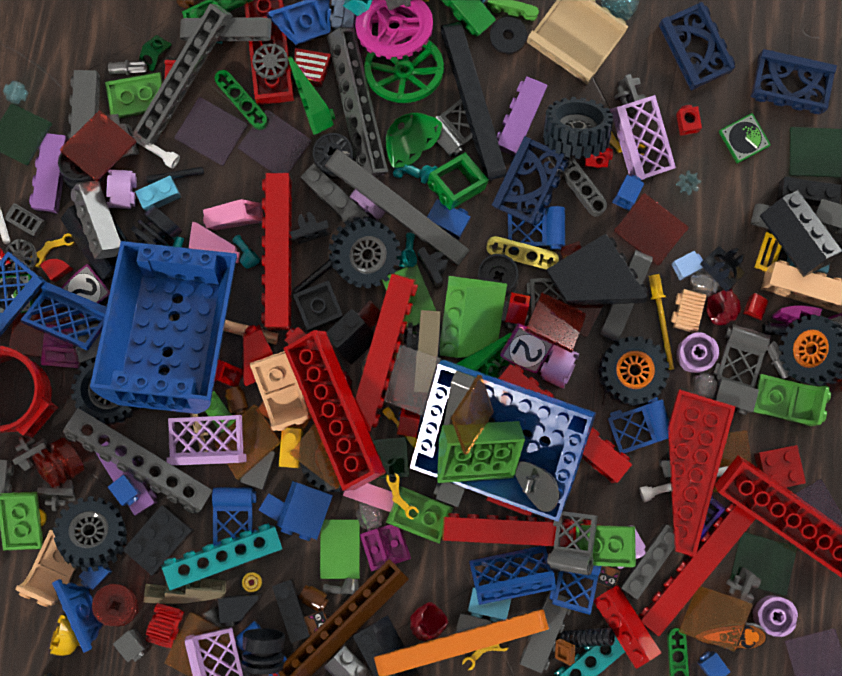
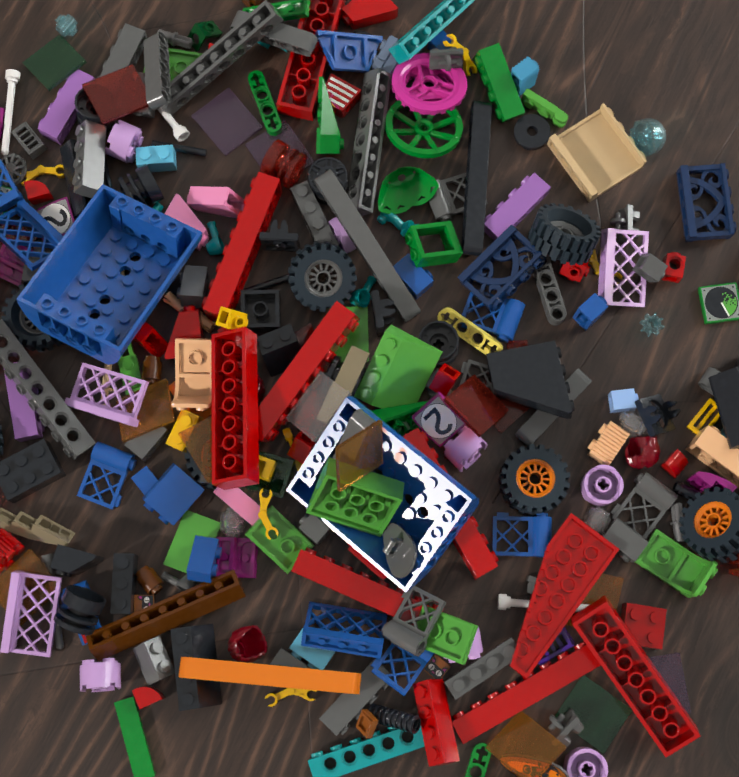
camera: 25 degrees right, 5 degrees down
(125, 491) = (14, 412): blue brick -> none
(126, 108) = (157, 71): none -> dark grey beam
(245, 306) = (193, 285): none -> dark grey brick
(252, 582) = (98, 543): yellow tile -> none
(270, 61) = (303, 75): dark grey wheel -> none
(270, 544) = (26, 510): teal brick -> none
(285, 155) = (283, 163): none -> clear red wheel
(302, 326) = (234, 320): none -> yellow brick
(357, 560) = (203, 559): none -> blue brick
(385, 454) = (266, 468): none -> yellow panel
(651, 229) = (600, 355): clear red piece -> none
(657, 293) = (583, 418): yellow piece -> none
(669, 130) = (650, 268): none -> dark grey brick

